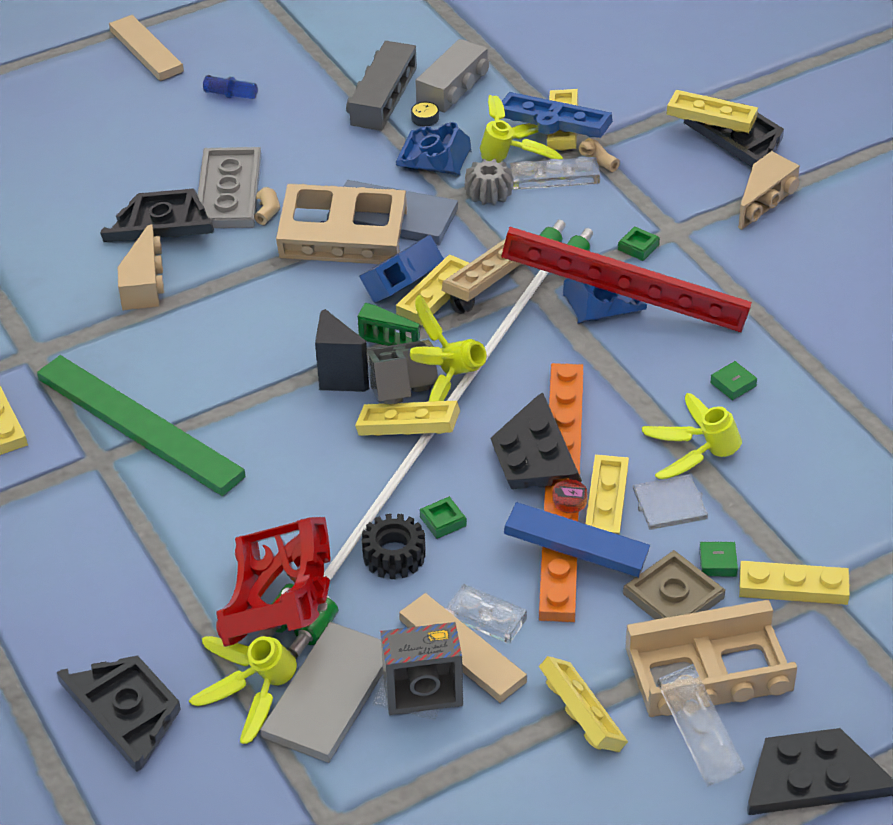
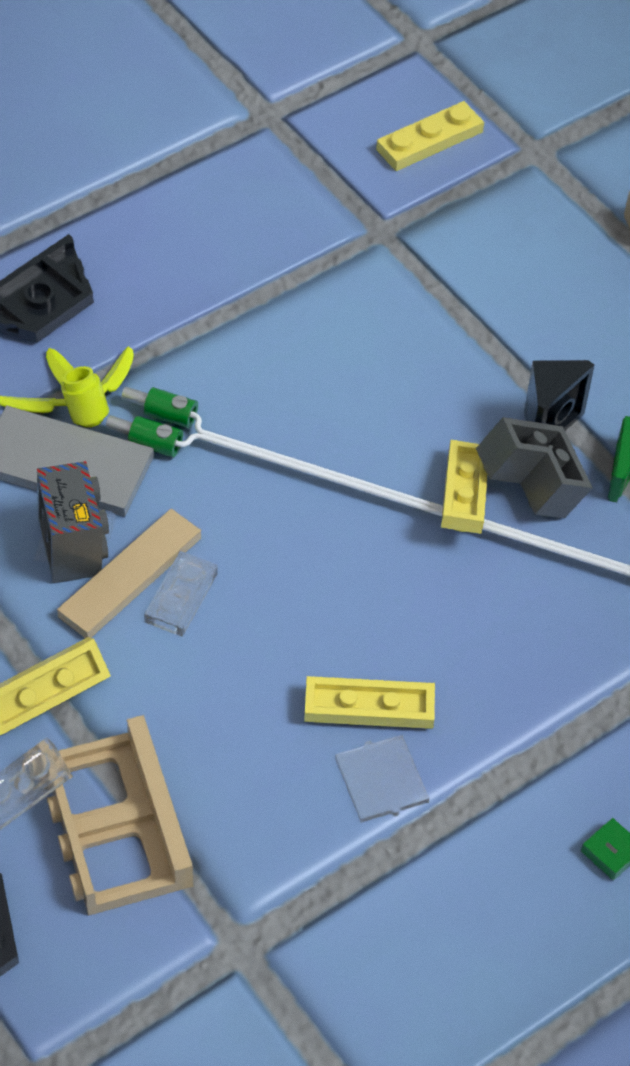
camera: 80 degrees right, 10 degrees up
(142, 425) = (432, 256): green tile -> none
(295, 607) = (179, 389): red fence -> none
(397, 560) = (268, 477): black tyre -> none
(443, 517) = (325, 542): green tile -> none
(452, 357) = (577, 524): neon yellow plant -> none
(533, 448) = (437, 618): black wing -> none
(559, 569) = (392, 658): orange plate -> none
(570, 496) = (350, 653): clear red tile -> none
(577, 539) = (280, 665): blue tile -> none
(673, 588) = (229, 782): dark tan tile -> none
(715, 424) = (490, 805): neon yellow plant -> none
(718, 559) = (285, 829): green tile -> none
(794, 582) = (254, 916): light yellow plate -> none

